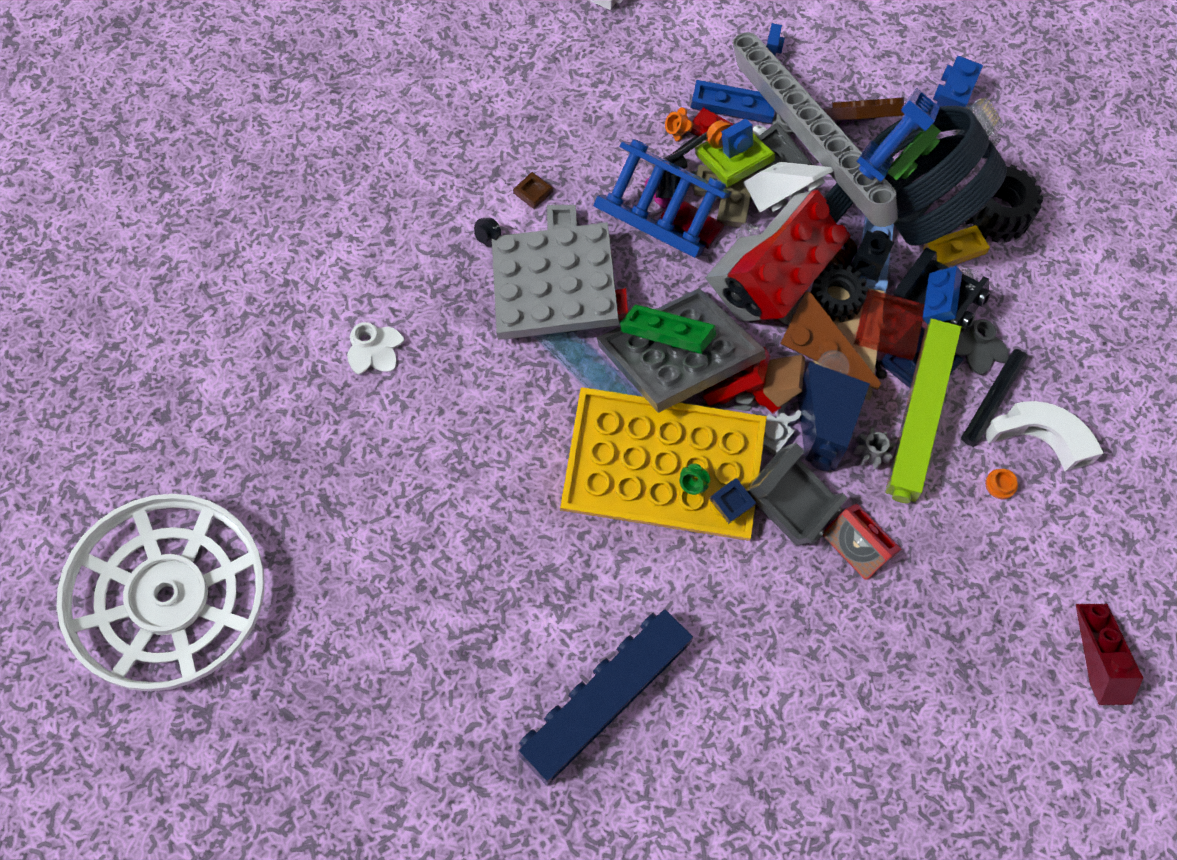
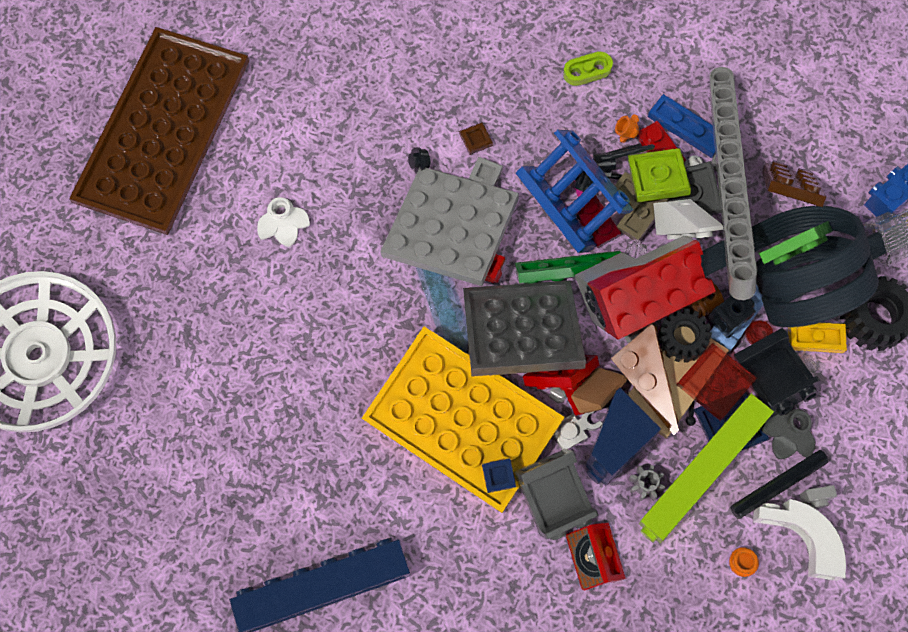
camera: 30 degrees right, 5 degrees up
(190, 309) = (160, 130): none -> reddish brown plate
(608, 84) = (586, 68): none -> lime plate
(668, 328) = (519, 307): green plate -> none
(681, 281) = (558, 268): none -> green plate
(692, 485) = (476, 444): green plate -> none
(714, 133) = (651, 154): orange plate -> none
(737, 138) = (663, 163): blue plate -> none
(775, 42) = (750, 85): blue plate -> none
(834, 360) = (644, 397): clear plate -> none
(900, 264) = (757, 330): none -> clear red plate
(918, 112) = (795, 218): blue fence -> none
(942, 295) = (774, 376): blue plate -> none
(1038, 390) = (818, 496): none -> light grey plate

